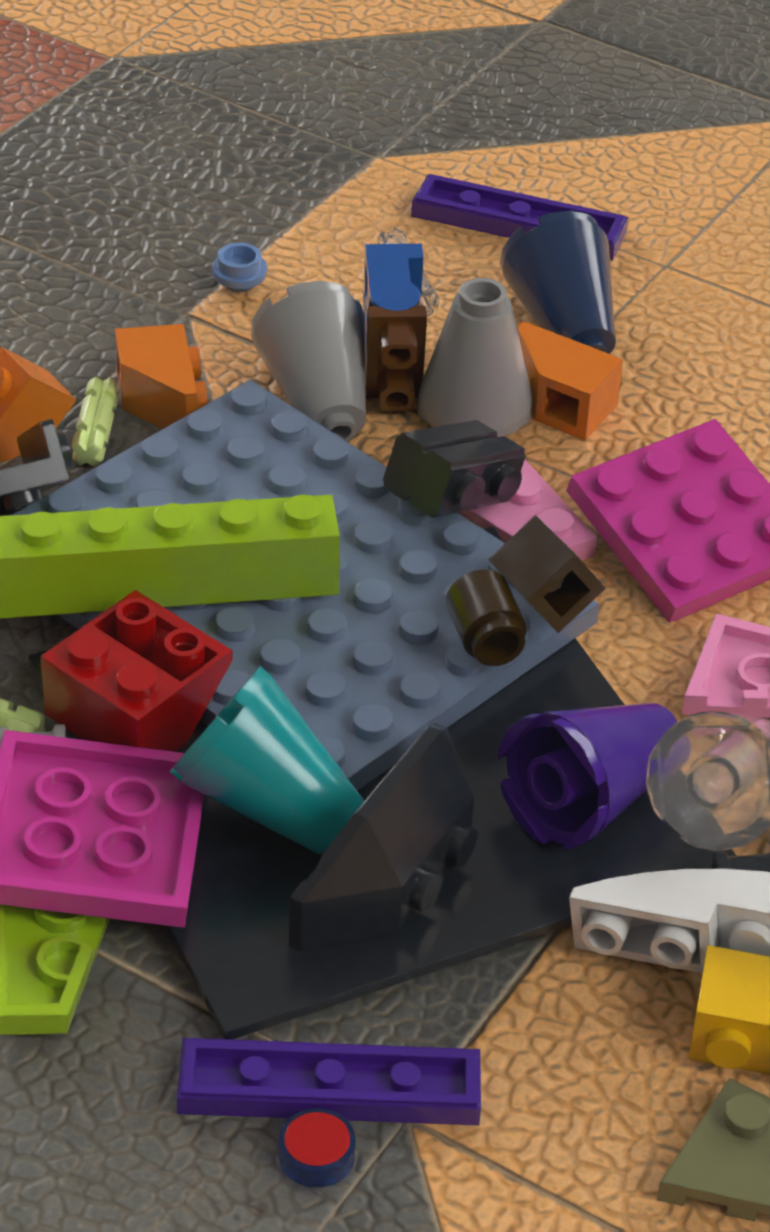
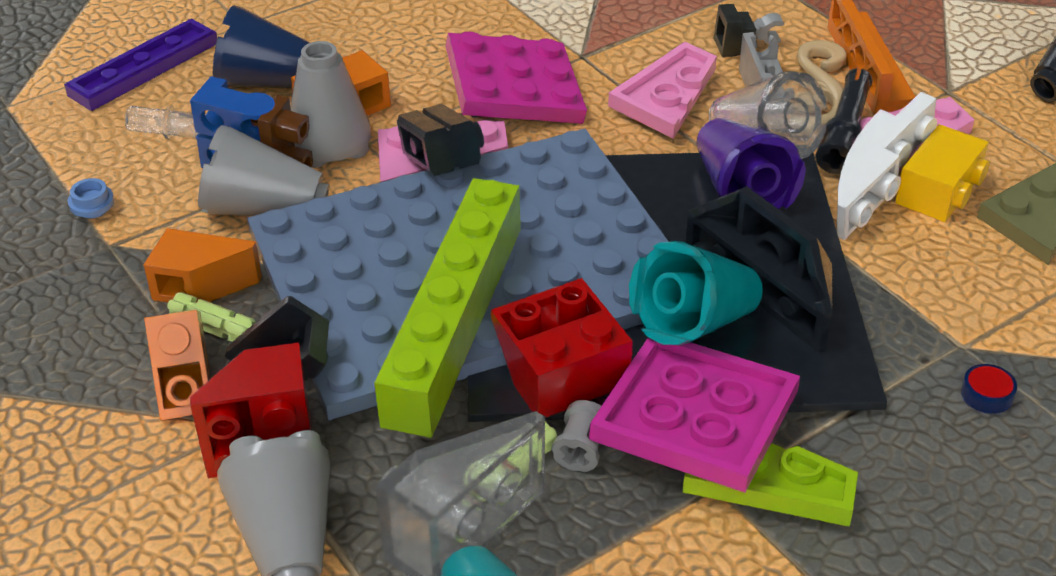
camera: 65 degrees left, 0 degrees up
(349, 1079) = (931, 373): dark purple tile -> none
(487, 617) = (603, 160): dark brown brick -> none
(547, 573) = (586, 119): dark brown brick -> none

